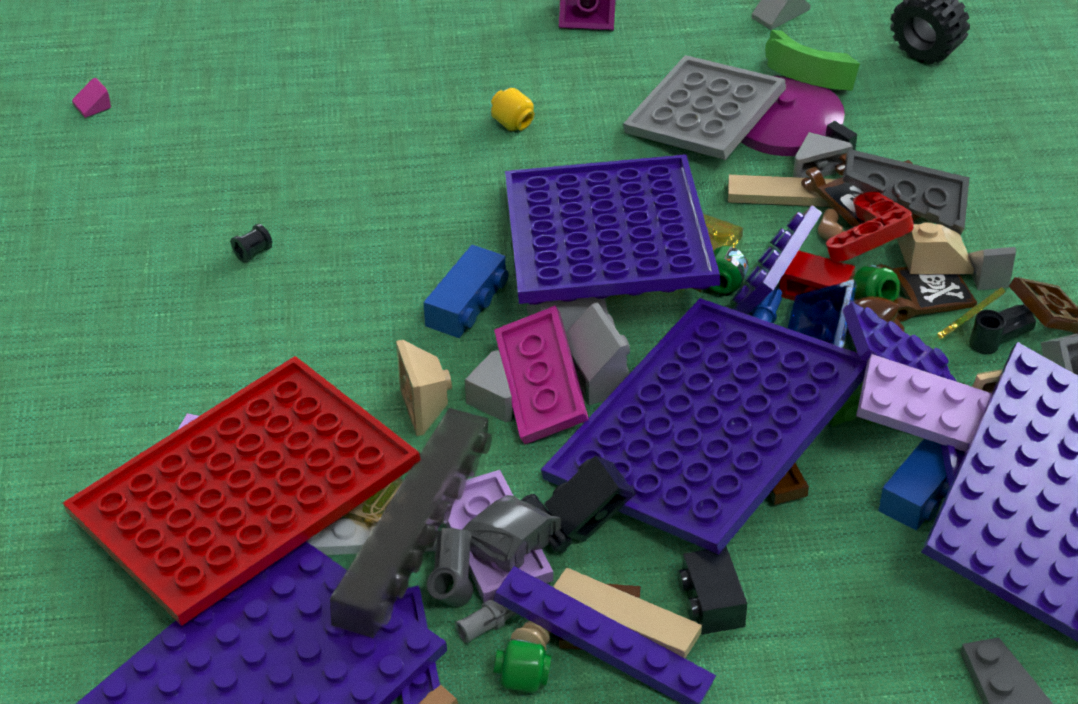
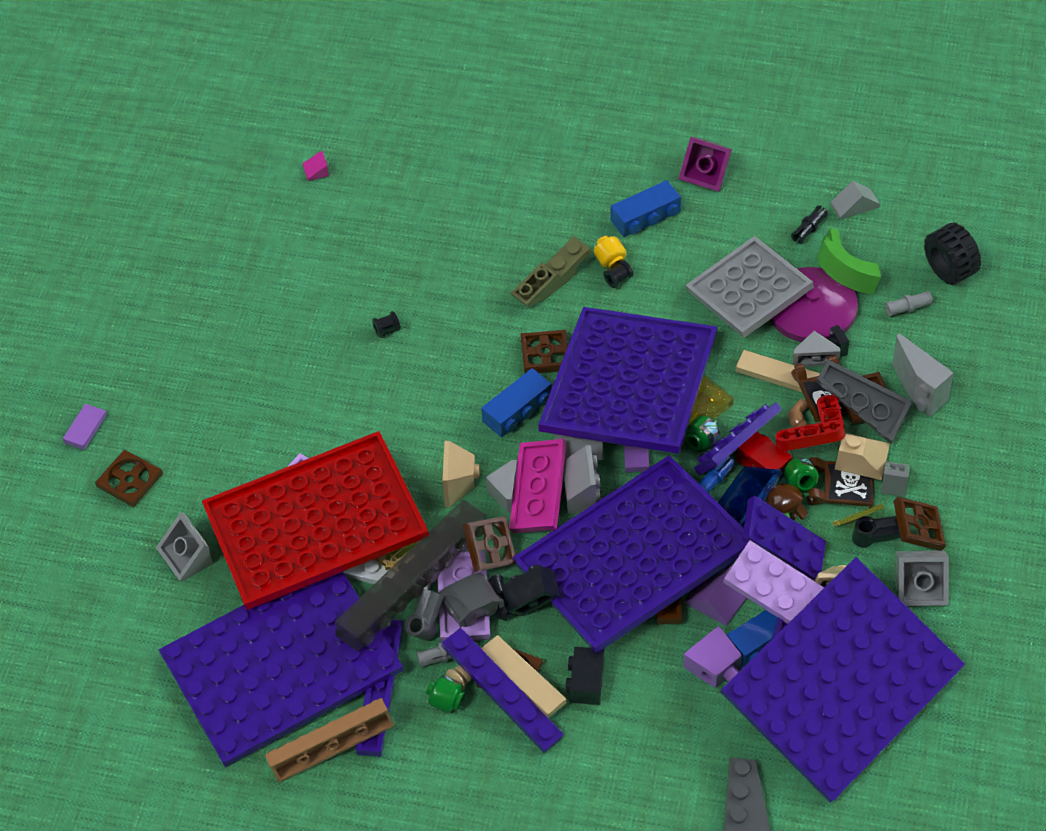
camera: 20 degrees right, 10 degrees up
(56, 570) = (184, 549): none -> light grey slope
(450, 146) = (551, 276): none -> olive slope
(473, 217) = (546, 366): none -> reddish brown piece
(519, 448) = (474, 546): none -> reddish brown piece
(530, 132) = (618, 274): none -> black bush
(535, 58) = (645, 208): none -> blue brick
(647, 314) = (636, 459): none -> medium lavender tile
(739, 38) = (809, 224): none -> black pin
(842, 449) = (716, 598): none -> medium lavender slope
(878, 526) = (713, 658): none -> medium lavender torso
(900, 89) = (908, 303): none -> light grey pin
(962, 147) = (922, 376): none -> light grey slope

